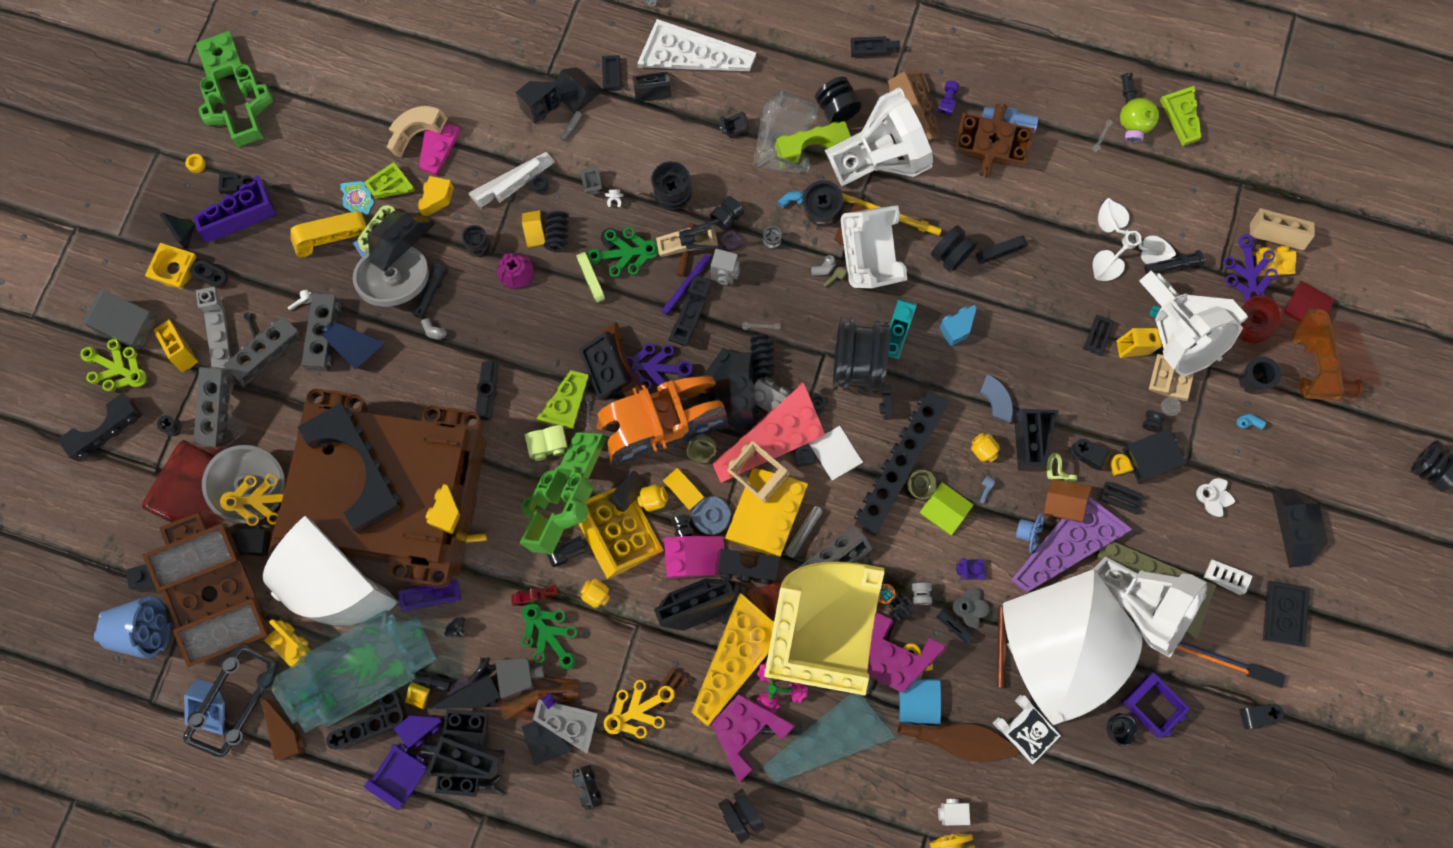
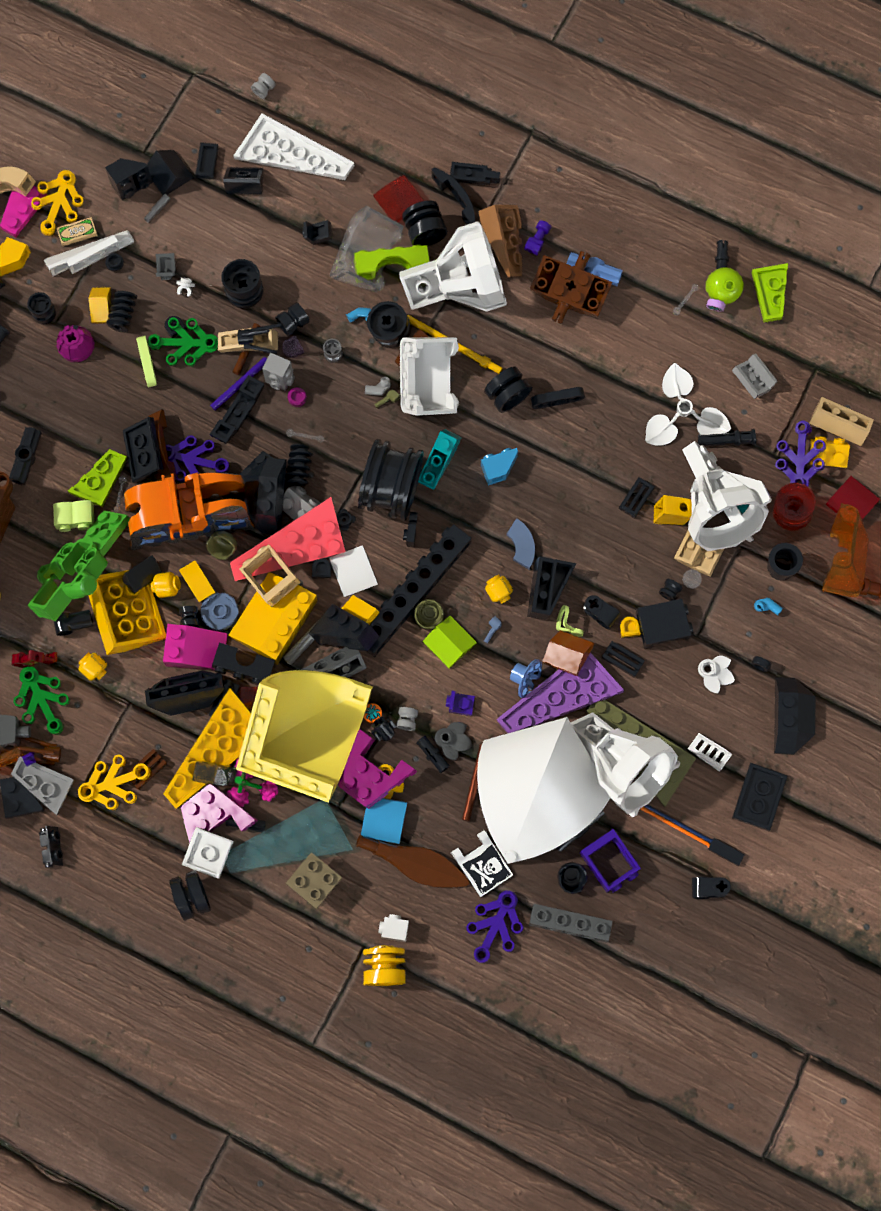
camera: 10 degrees right, 0 degrees up
(472, 132) = (58, 199): none -> yellow plant
(496, 160) = (77, 231): none -> tan tile
(741, 684) = (214, 774): none -> clear smoke slope
(745, 289) = (297, 397): none -> magenta tile
(750, 767) = (207, 853): none -> white tile
(805, 80) = (397, 197): none -> clear red slope
(843, 514) = (343, 629): none -> black wedge
(846, 56) = (445, 181): none -> black slope
(853, 492) = (360, 609): none -> yellow tile
(865, 778) = (314, 880): none -> dark tan plate
(1055, 789) = (496, 922): none -> dark purple plant
(1130, 776) = (570, 923): none -> dark grey brick
(1188, 198) = (755, 376): none -> light grey bracket
(1258, 480) = (761, 664): none -> black tile

